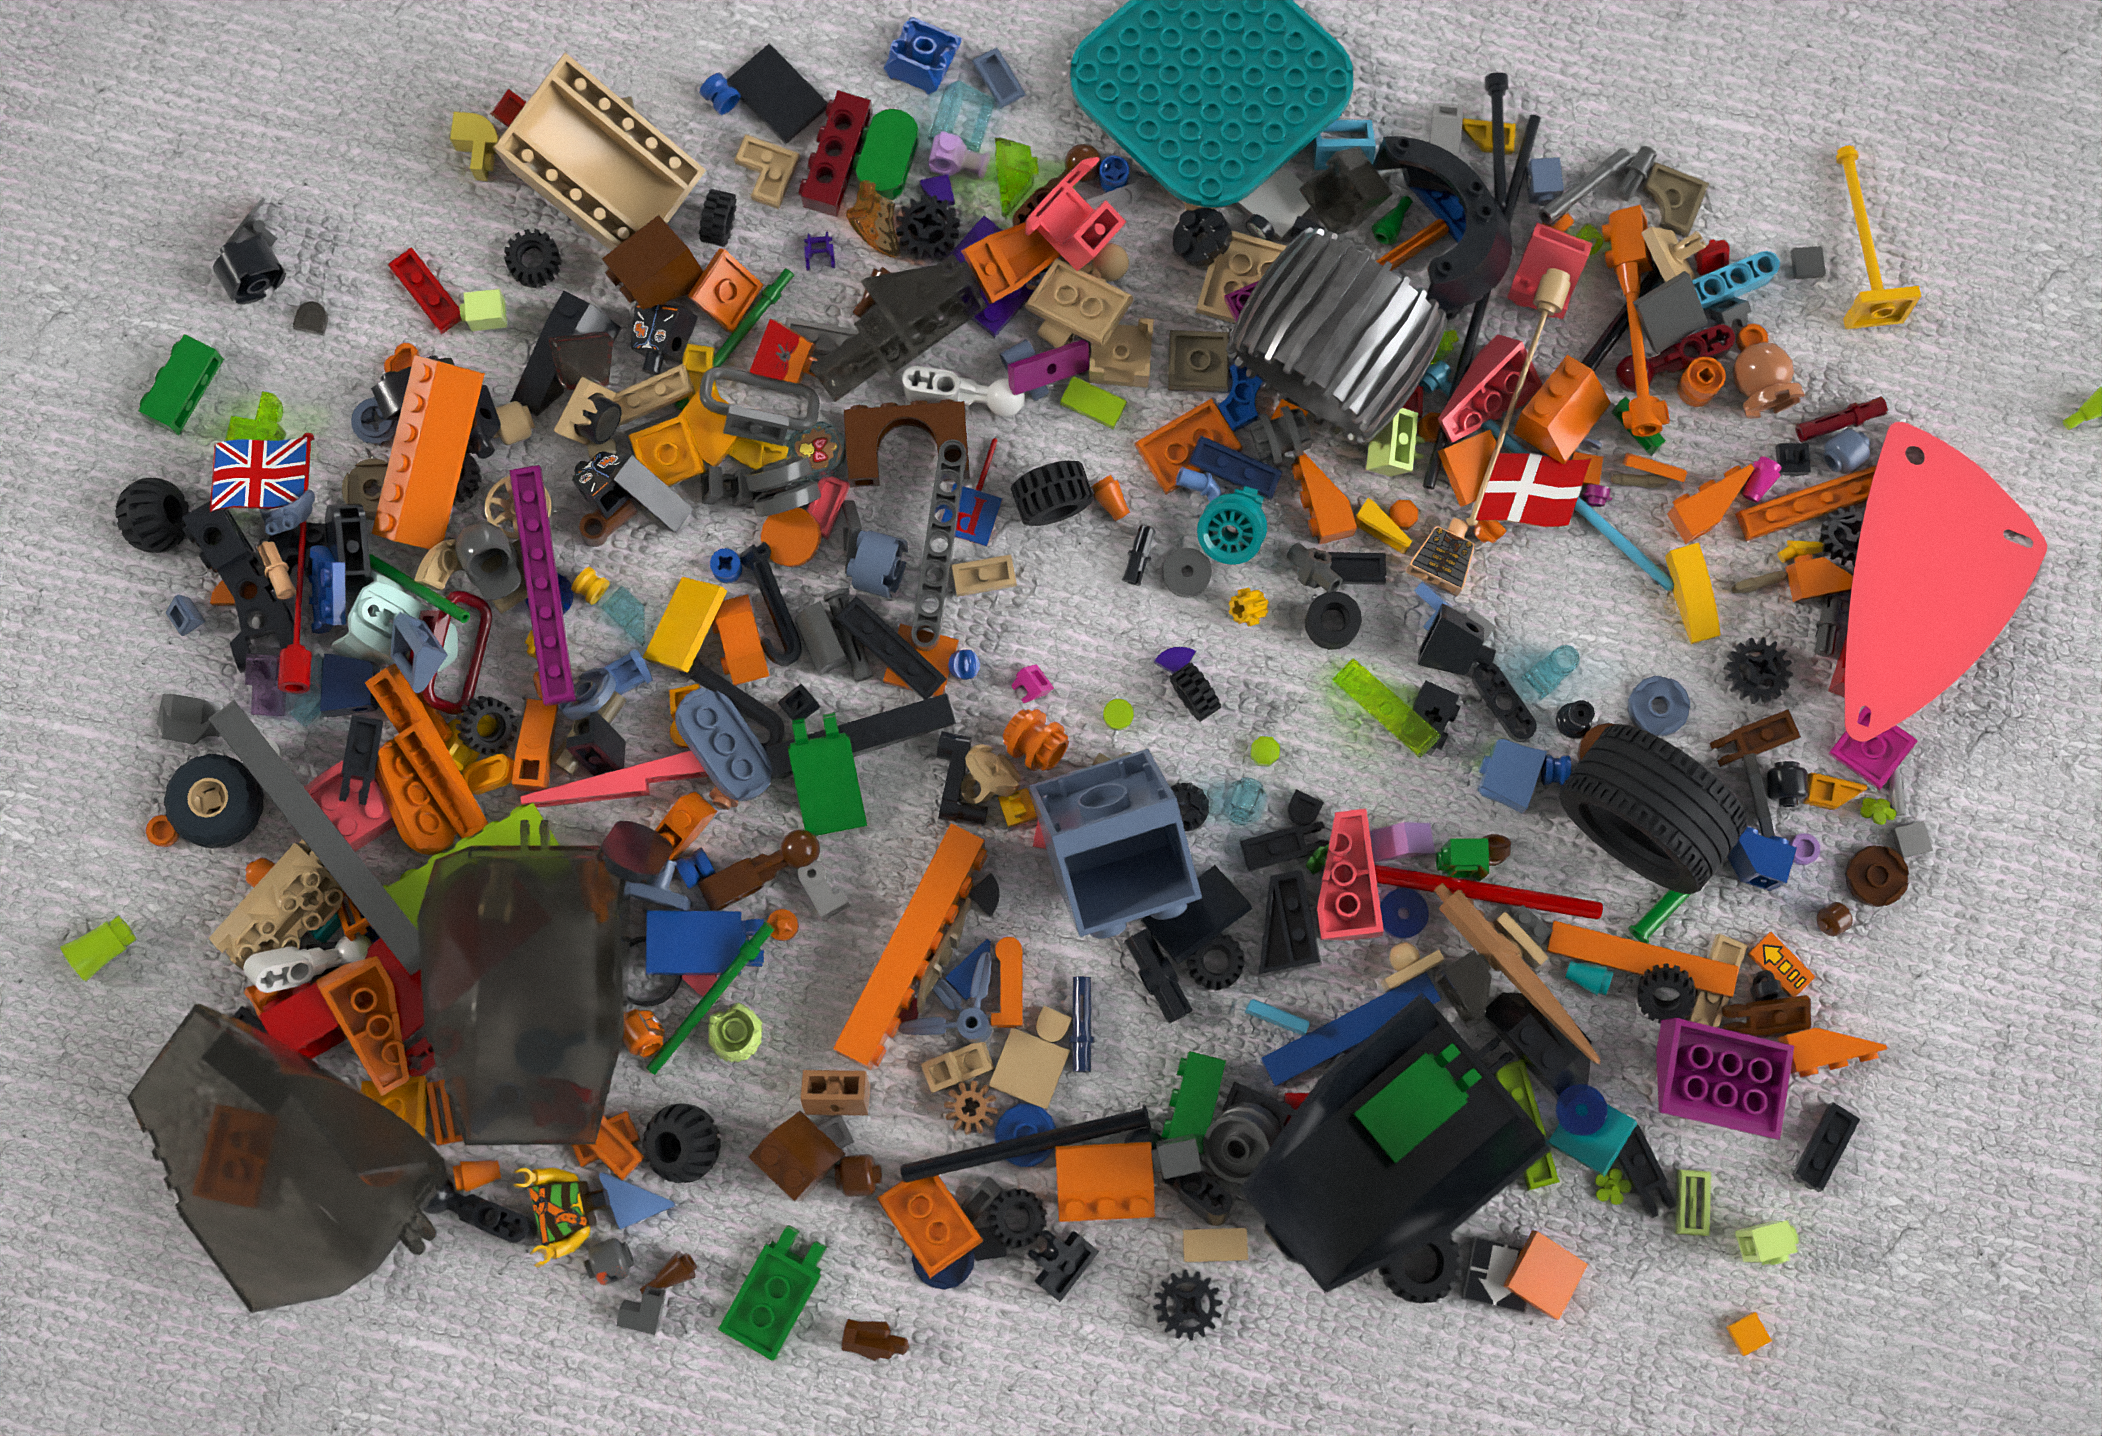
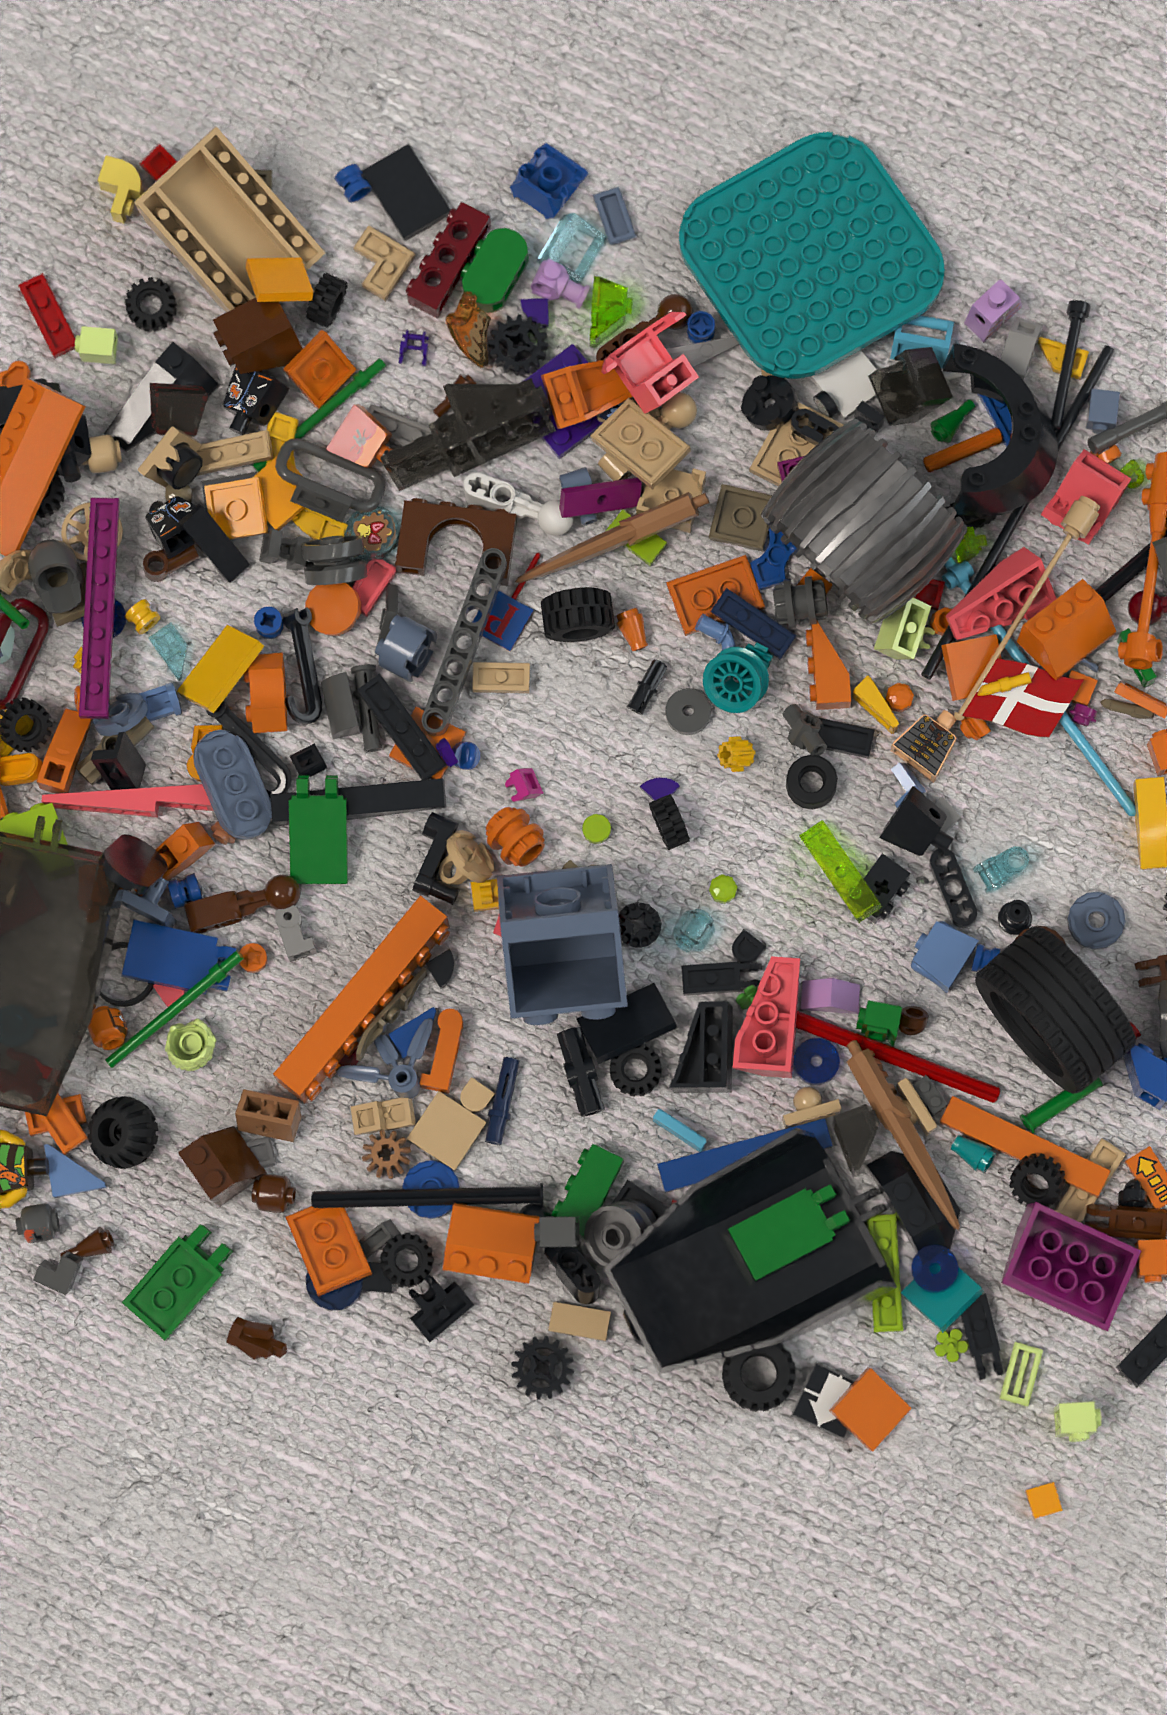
camera: 20 degrees right, 0 degrees up
(664, 203) = (279, 279): none -> light orange tile
(944, 665) = (446, 752): none -> dark purple tile
(1087, 396) = (630, 531): none -> medium nougat piece
(1258, 250) = (816, 421): none -> black beam
(1414, 95) = (995, 308): none -> lavender torso
(1513, 479) = (1004, 684): none -> yellow piece

